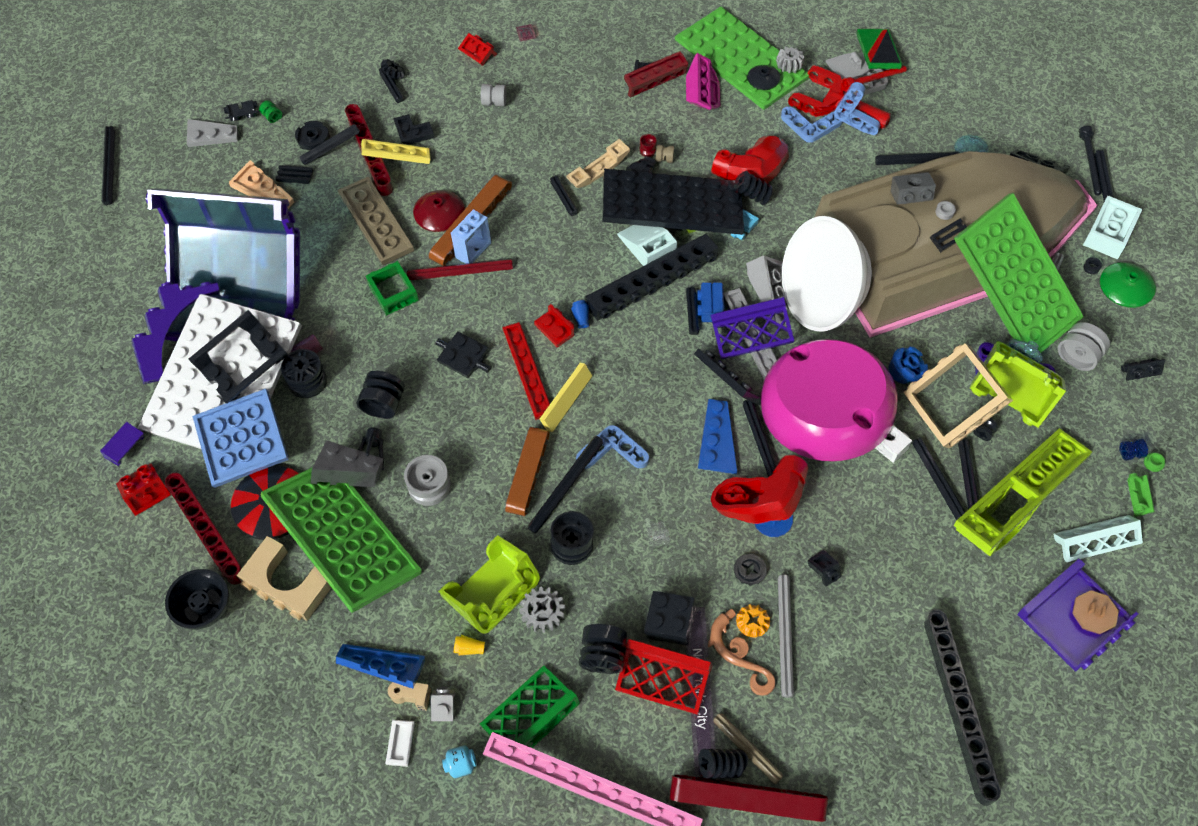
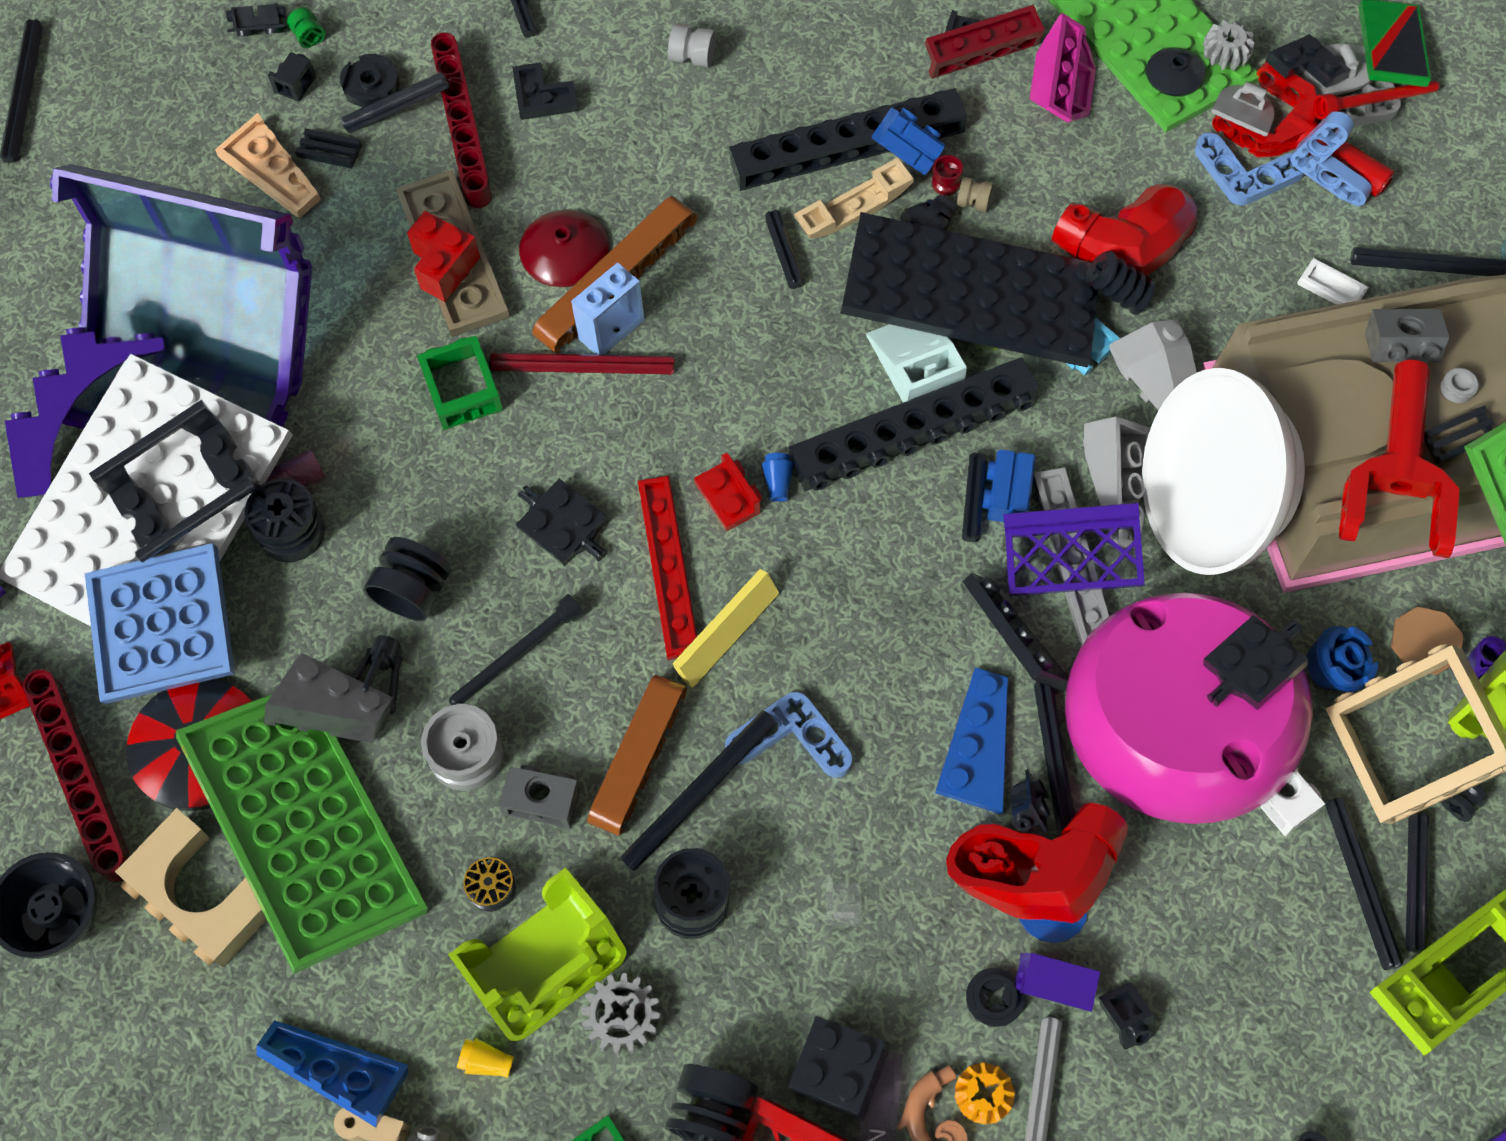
camera: 10 degrees right, 5 degrees up
(209, 133) = (197, 53): light grey wing -> none
(267, 138) = (293, 76): none -> black brick
(372, 220) = (444, 252): none -> red brick
(395, 151) = (505, 130): light yellow tile -> none
(455, 553) = (489, 884): none -> wheel
(474, 400) = (566, 611): none -> black piece
(484, 507) = (554, 810): none -> dark grey brick
(589, 133) = (837, 140): none -> black brick
(624, 129) = (908, 140): none -> blue brick
(751, 463) = (1029, 804): none -> black hinge
(778, 224) = (1155, 359): none -> light grey wedge
(782, 553) = (1057, 981): none -> dark purple hinge
(805, 90) = (1246, 107): none -> light grey shield
(835, 60) = (1308, 55): none -> black plate
(861, 367) = (1255, 662): none -> black plate
(863, 174) = (1331, 283): none -> white tile
(922, 254) = (1402, 466): none -> red piece
(944, 347) = (1421, 631): none -> medium nougat piece

